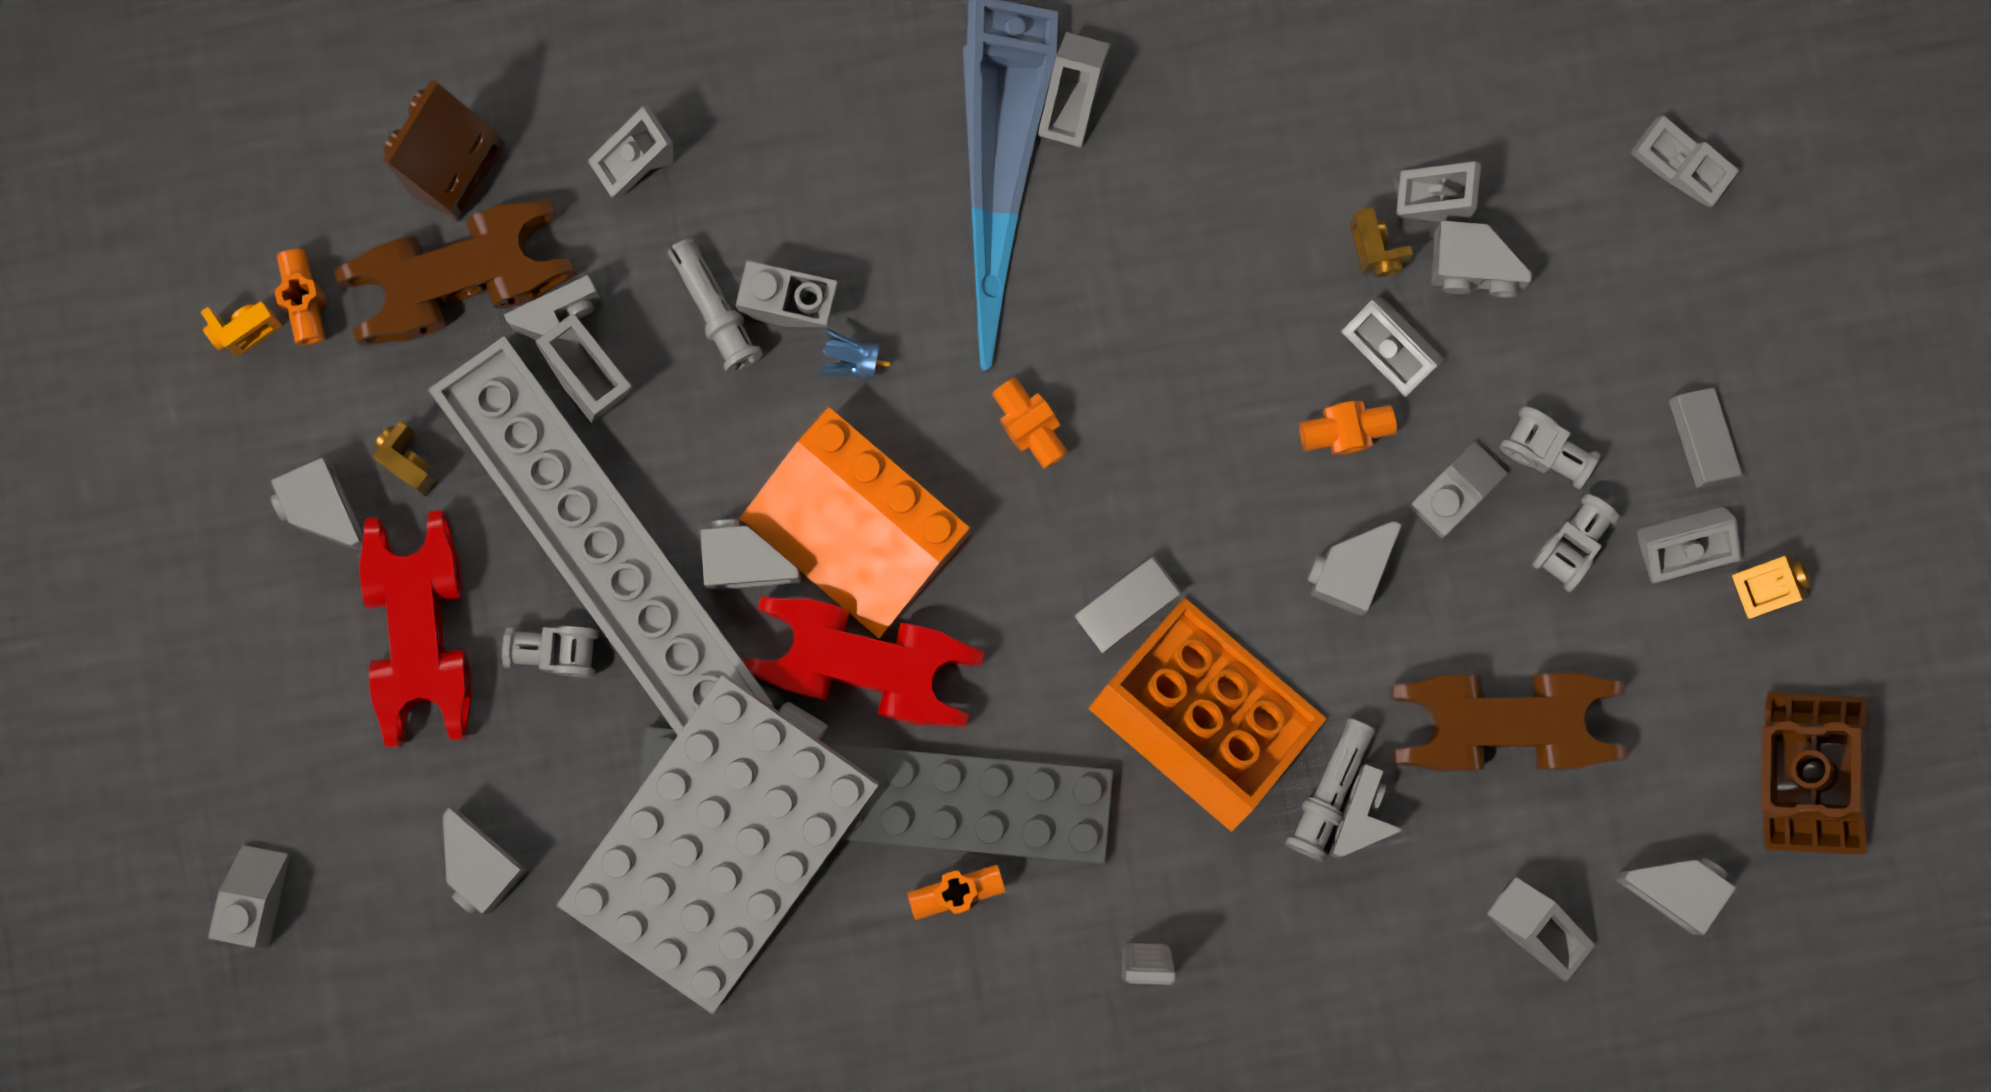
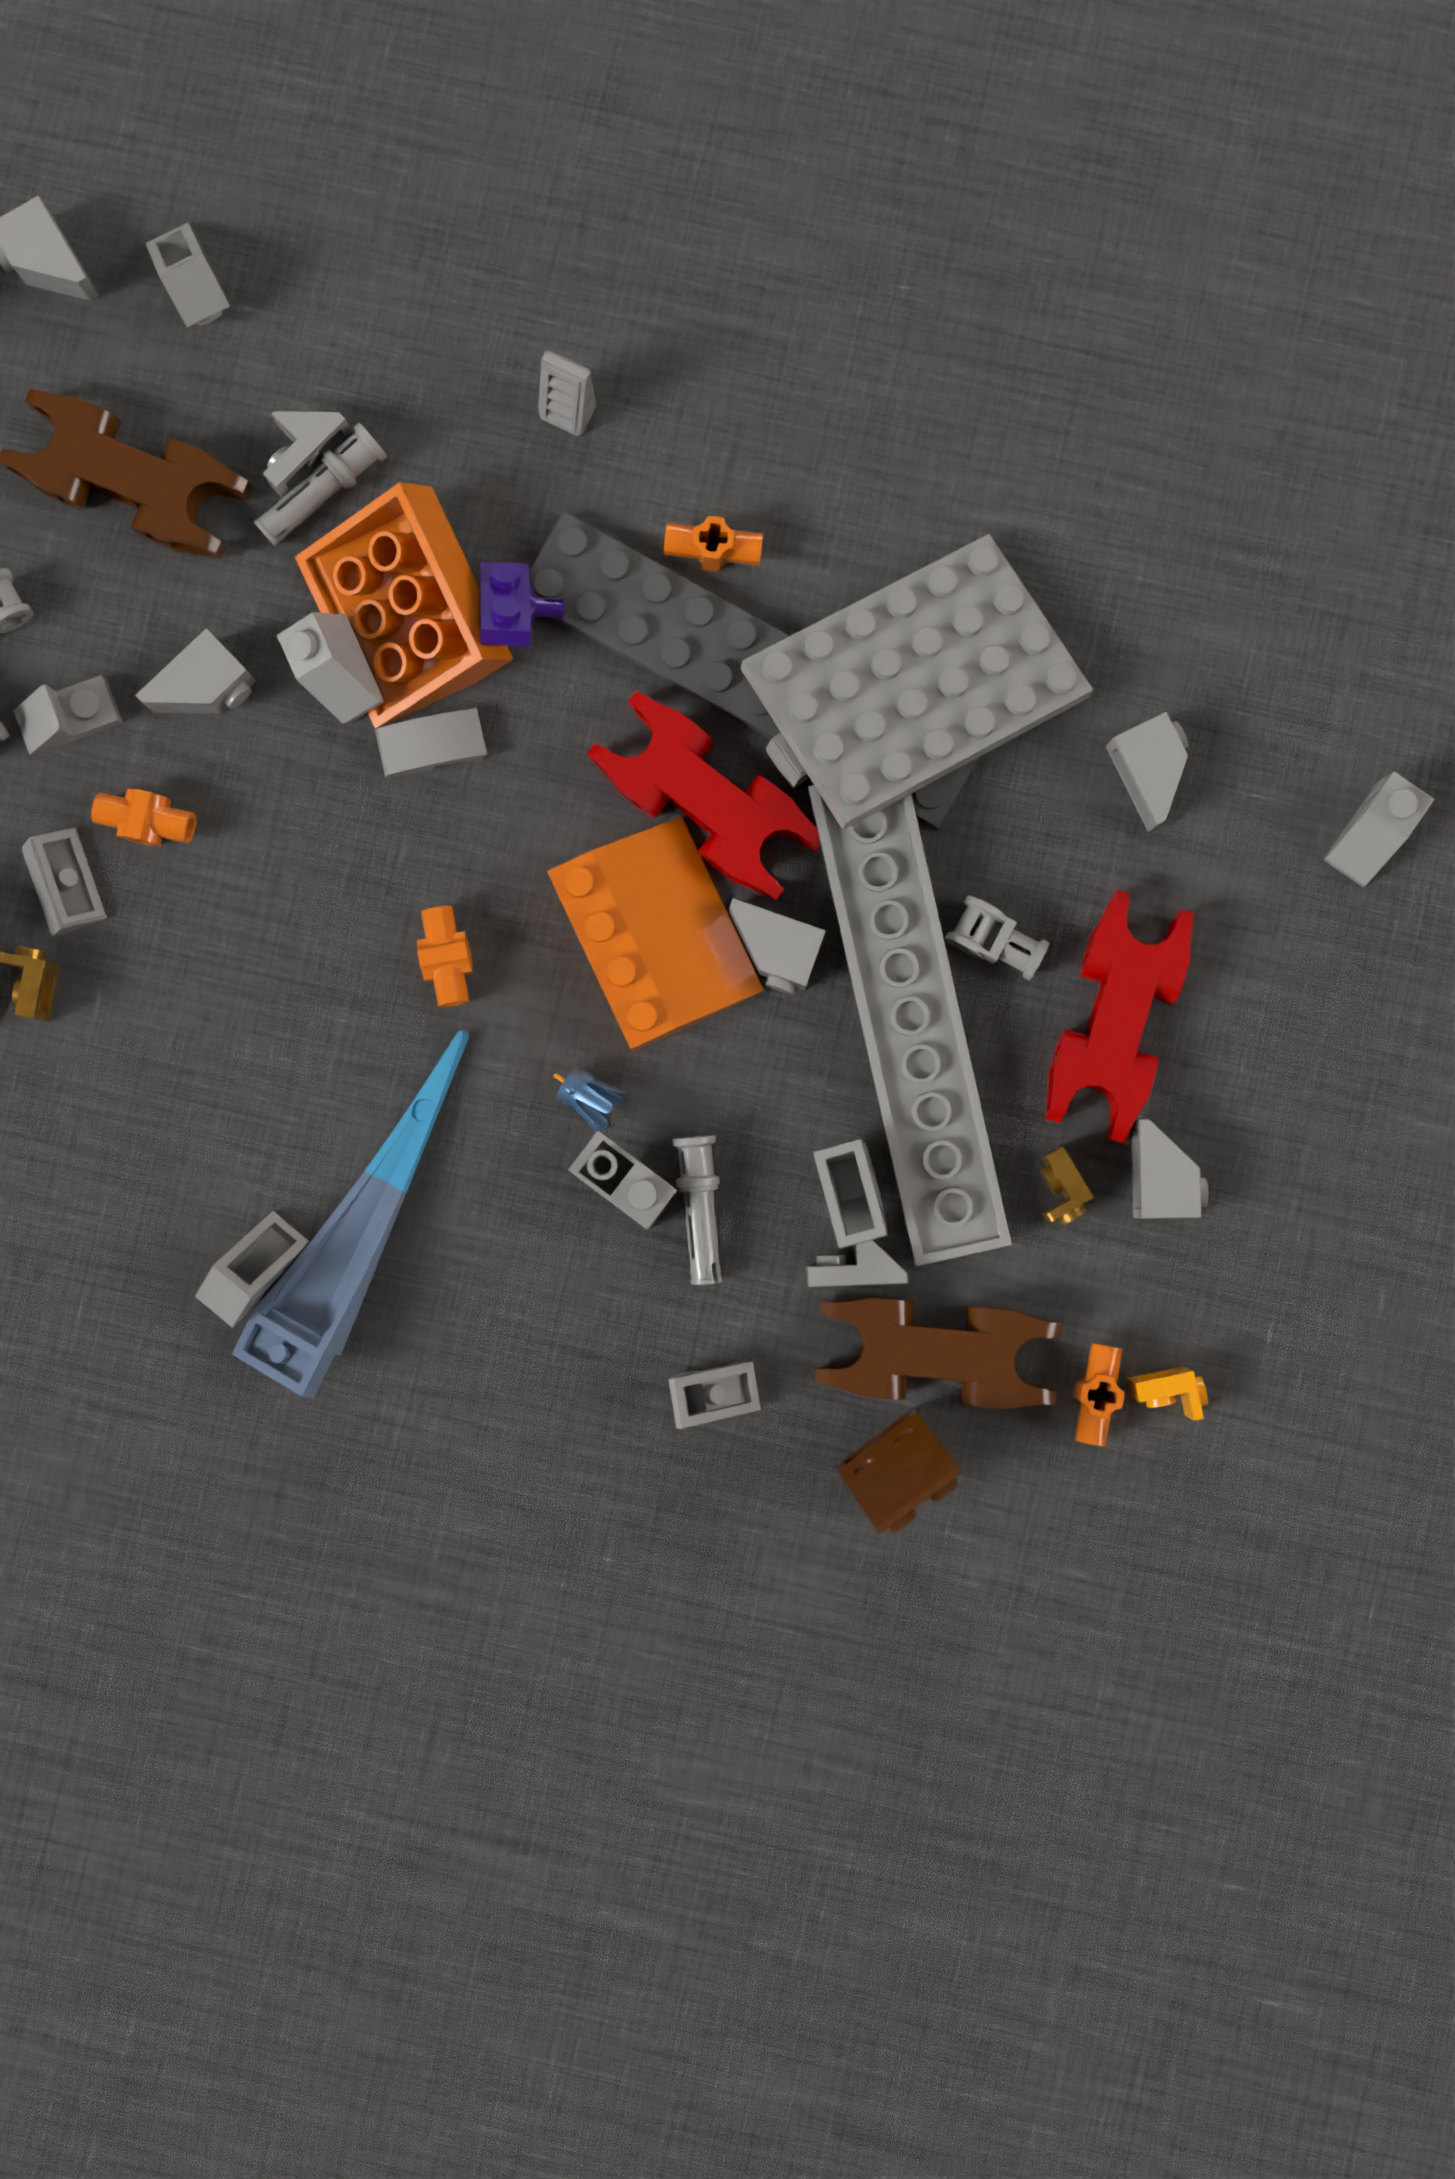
camera: 155 degrees left, 5 degrees up
(1109, 750) = (510, 604): none -> dark purple plate
(1244, 630) = (331, 665): none -> light grey slope

